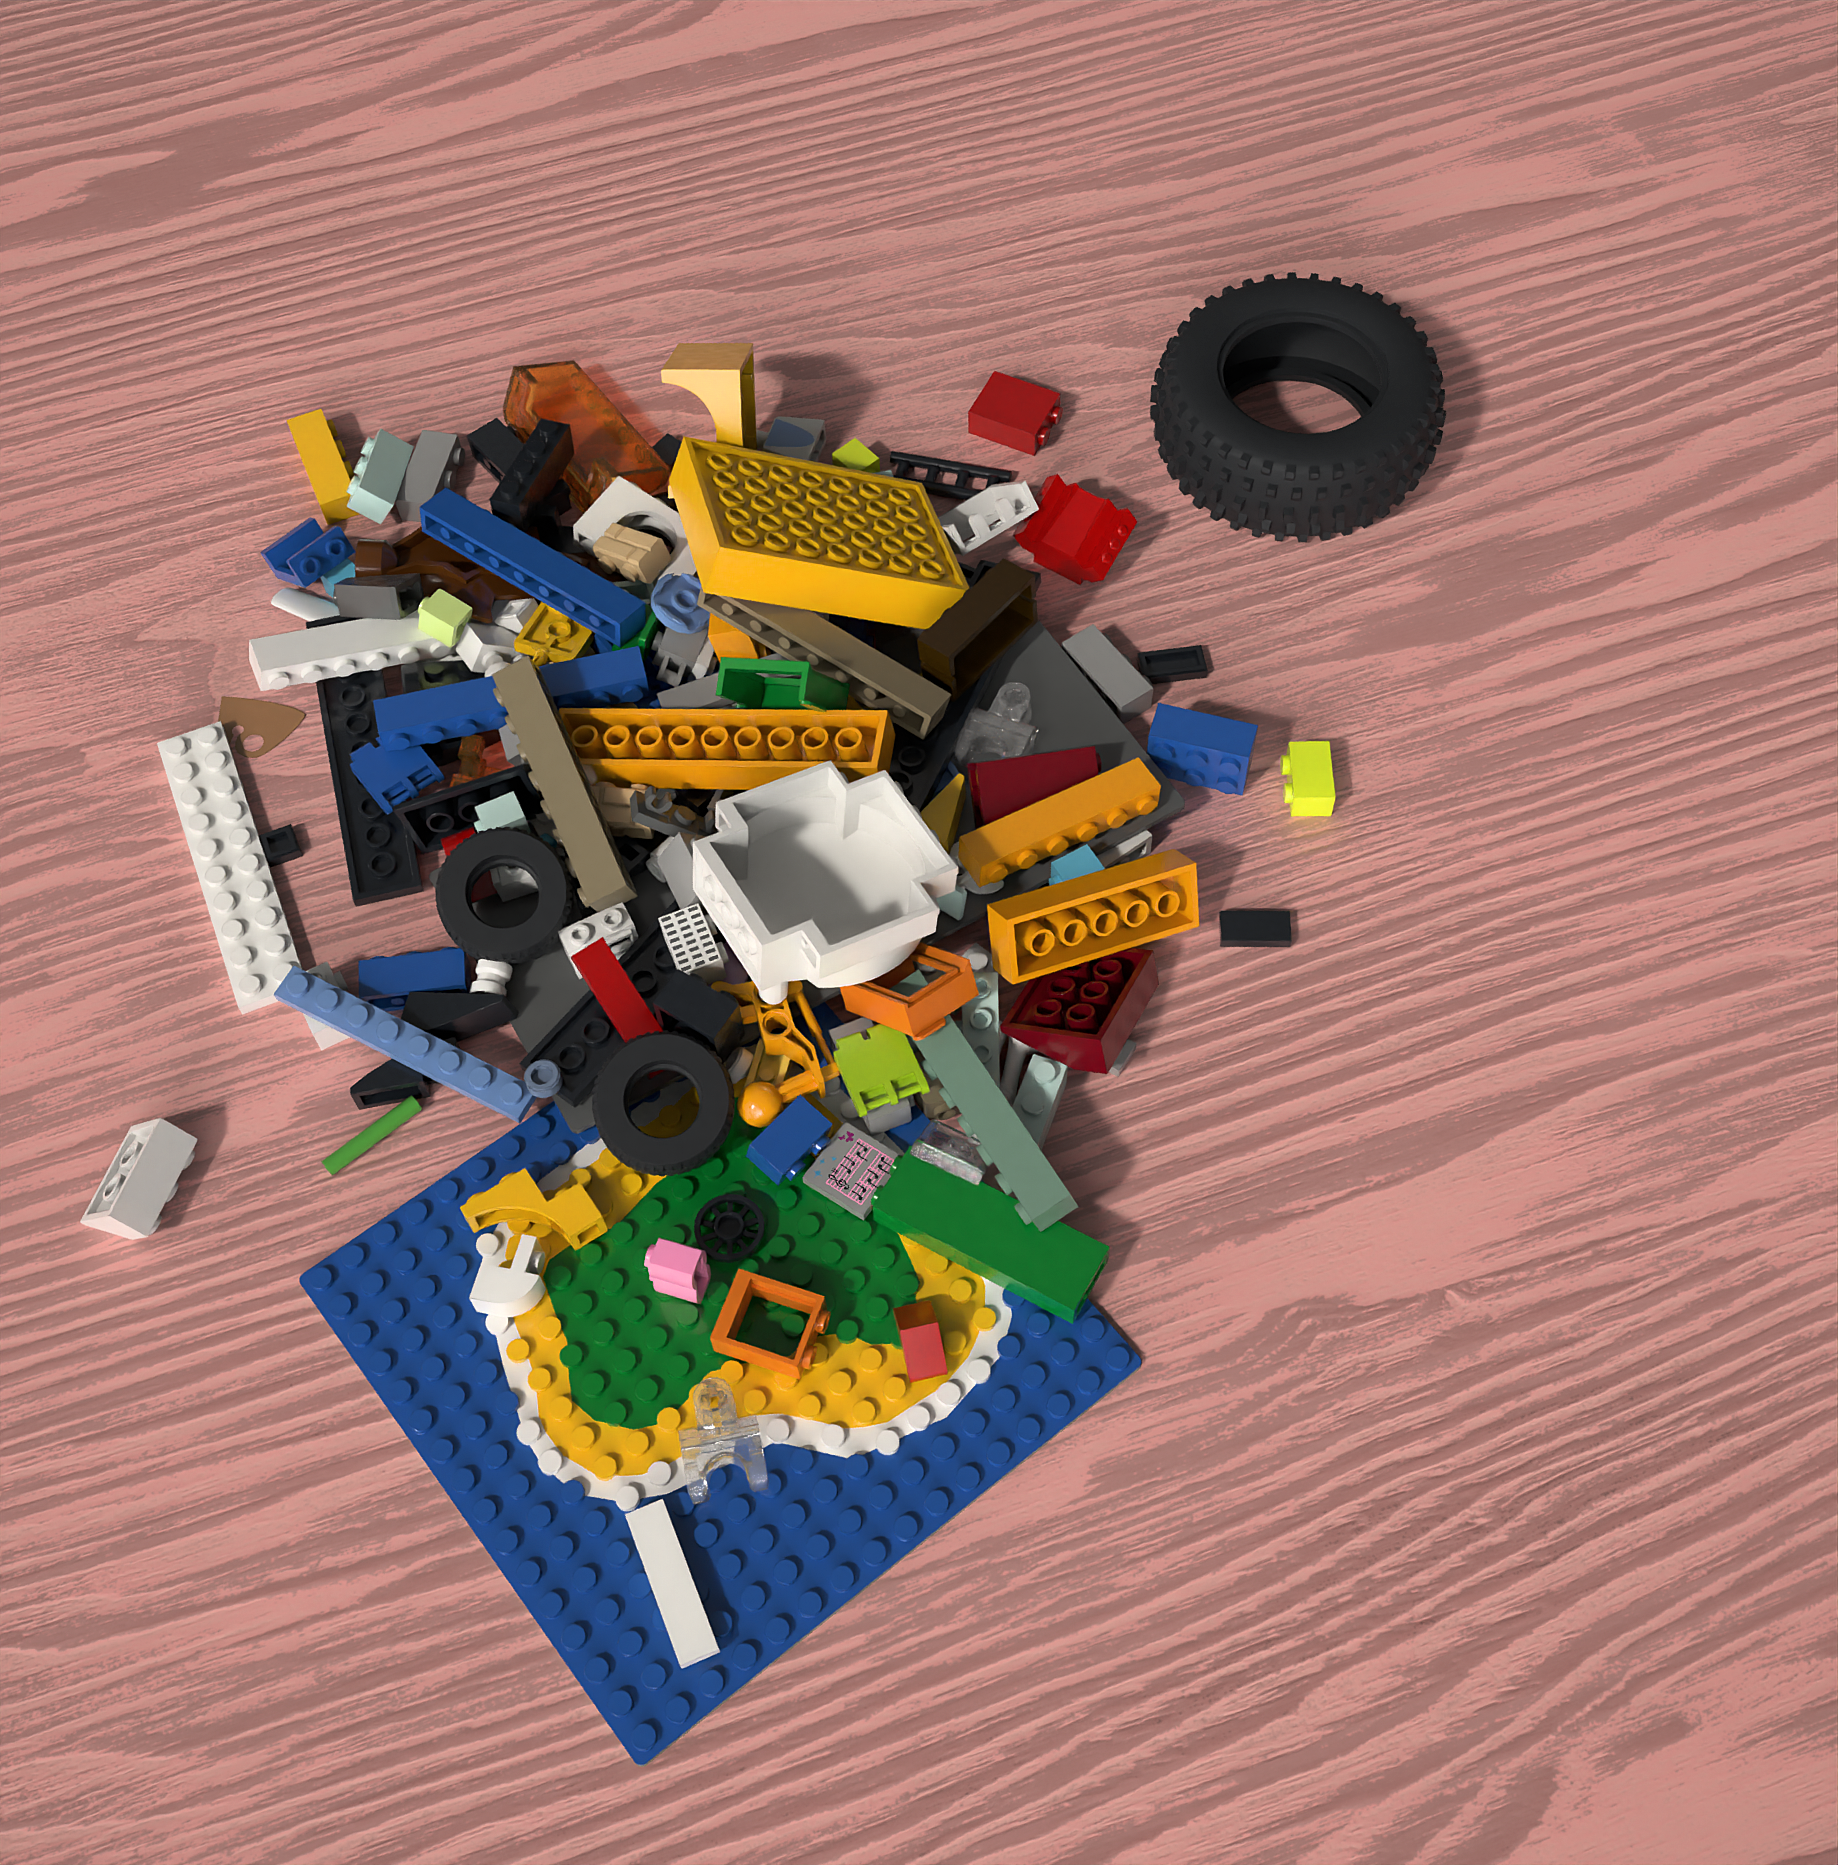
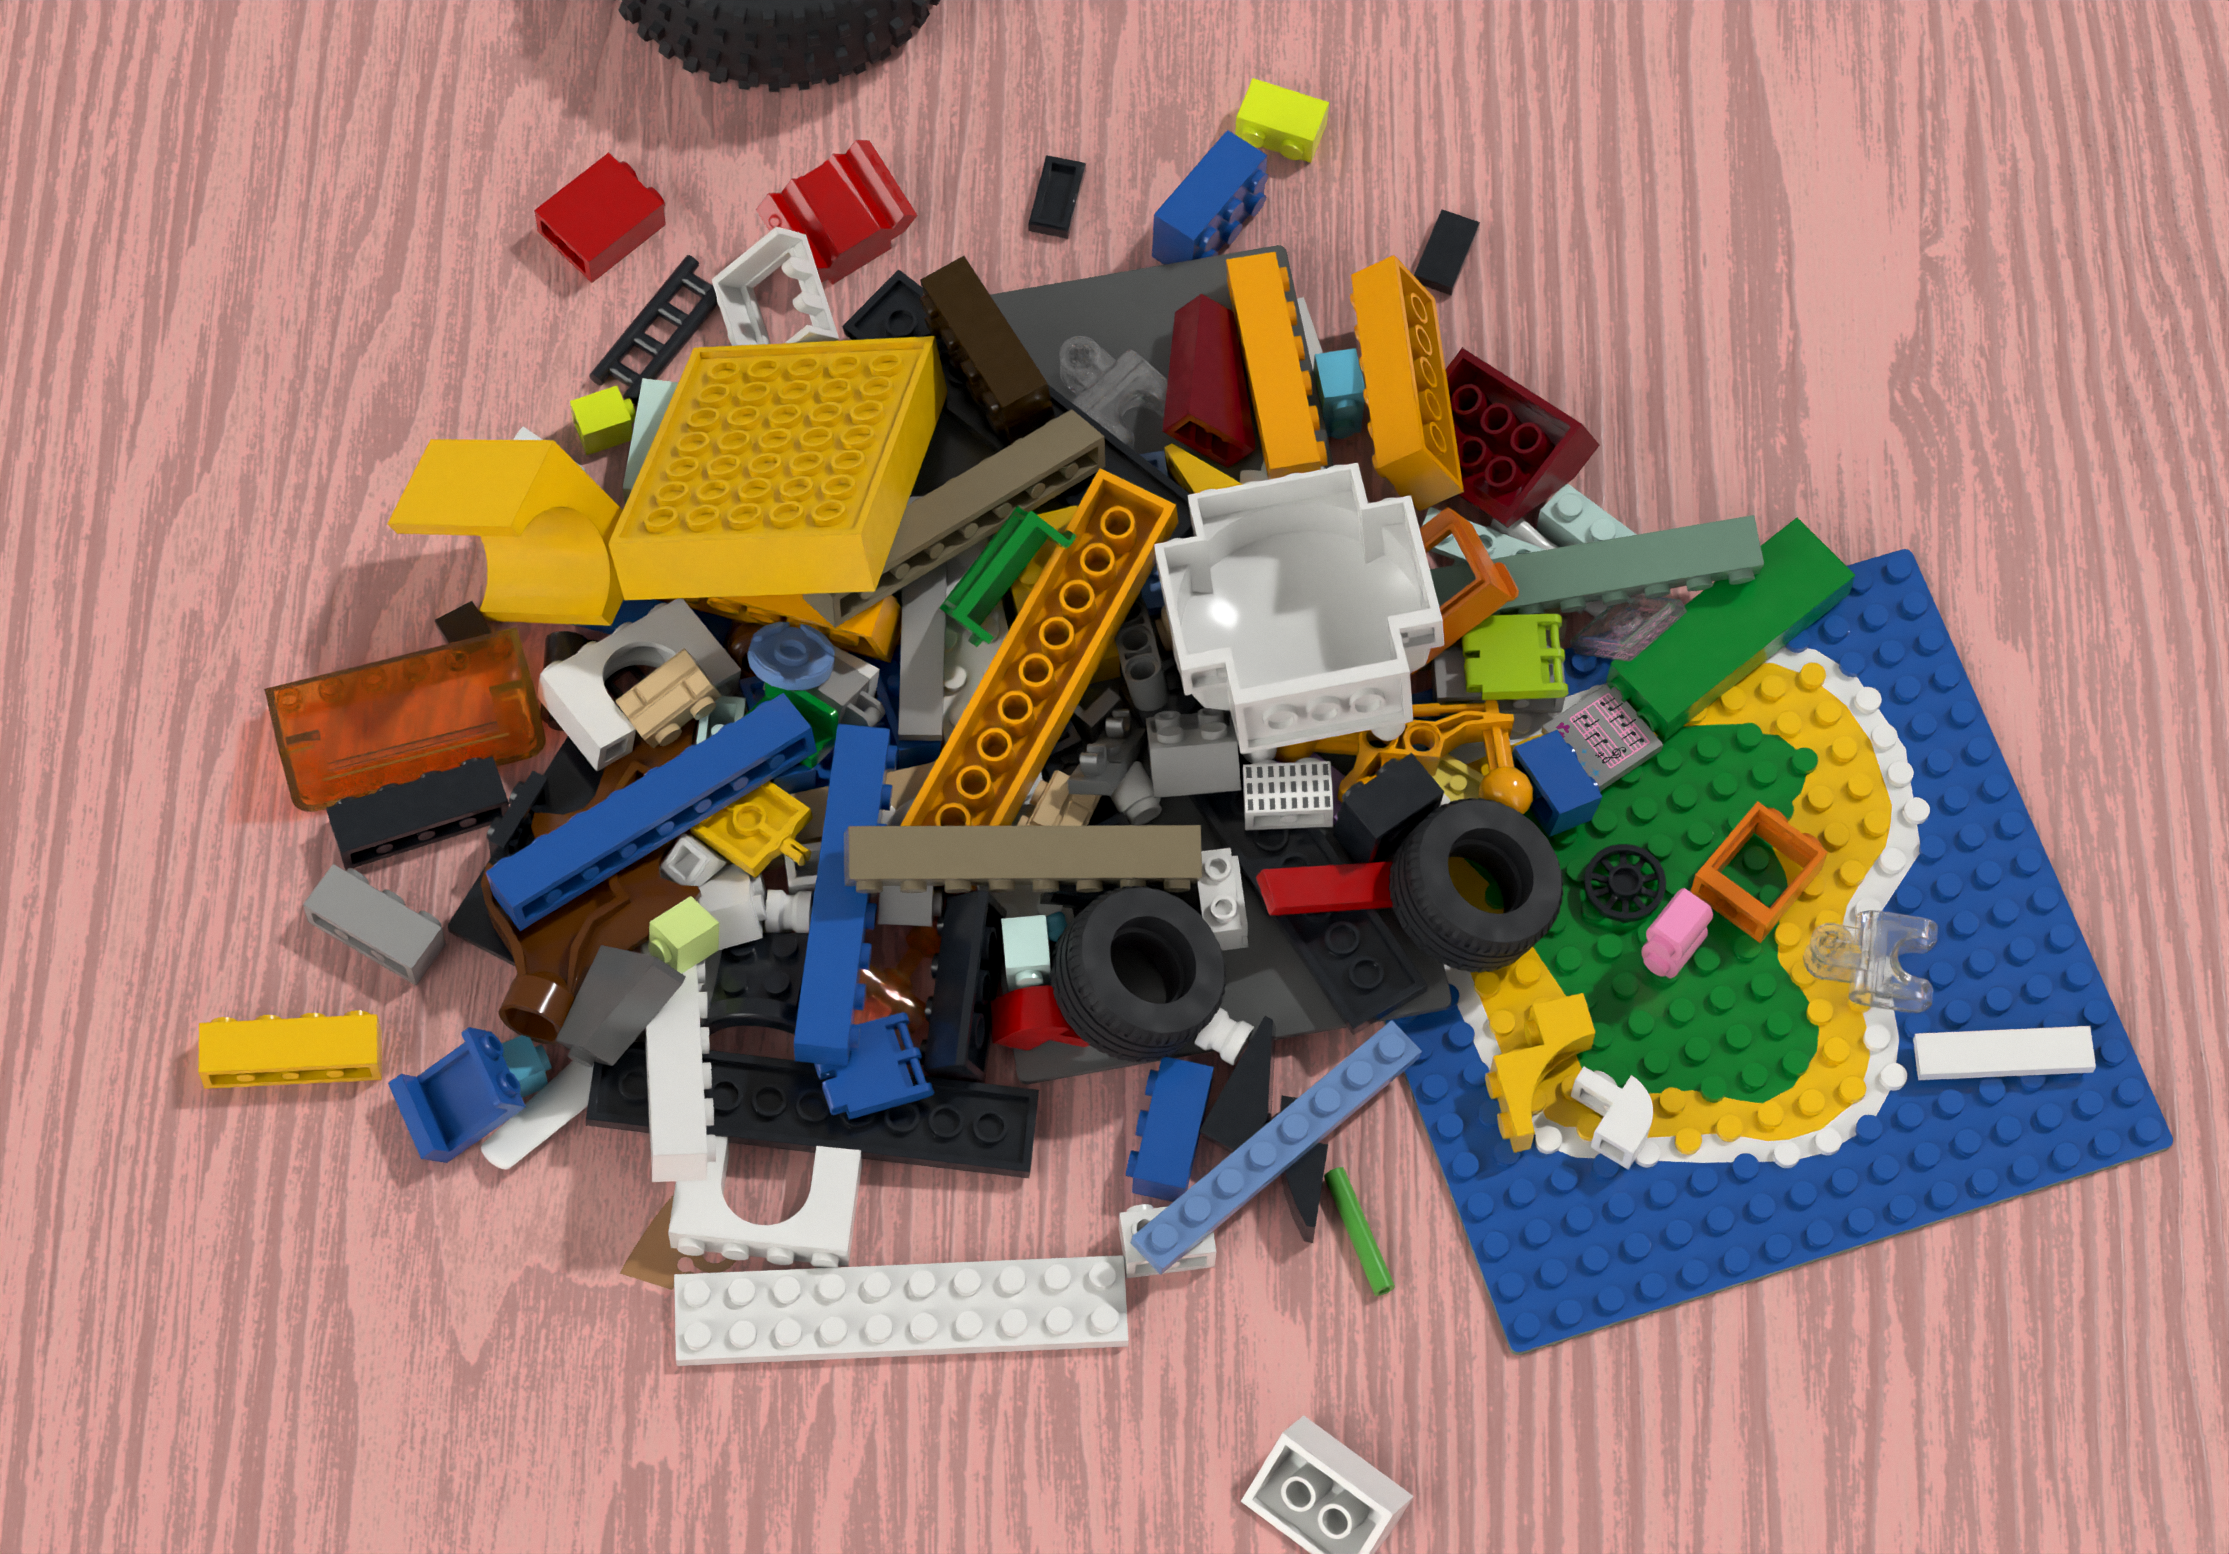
camera: 75 degrees left, 5 degrees up
(264, 723) = (815, 1234): none -> white arch
(280, 845) = (898, 1243): black tile -> none
(378, 475) = (362, 976): light aqua brick -> none
(533, 474) = (484, 775): black brick -> none
(543, 1078) = (1390, 1004): sand blue tile -> none
(920, 1341) = (1820, 735): slope -> none
(1110, 673) = (1049, 258): light grey brick -> none

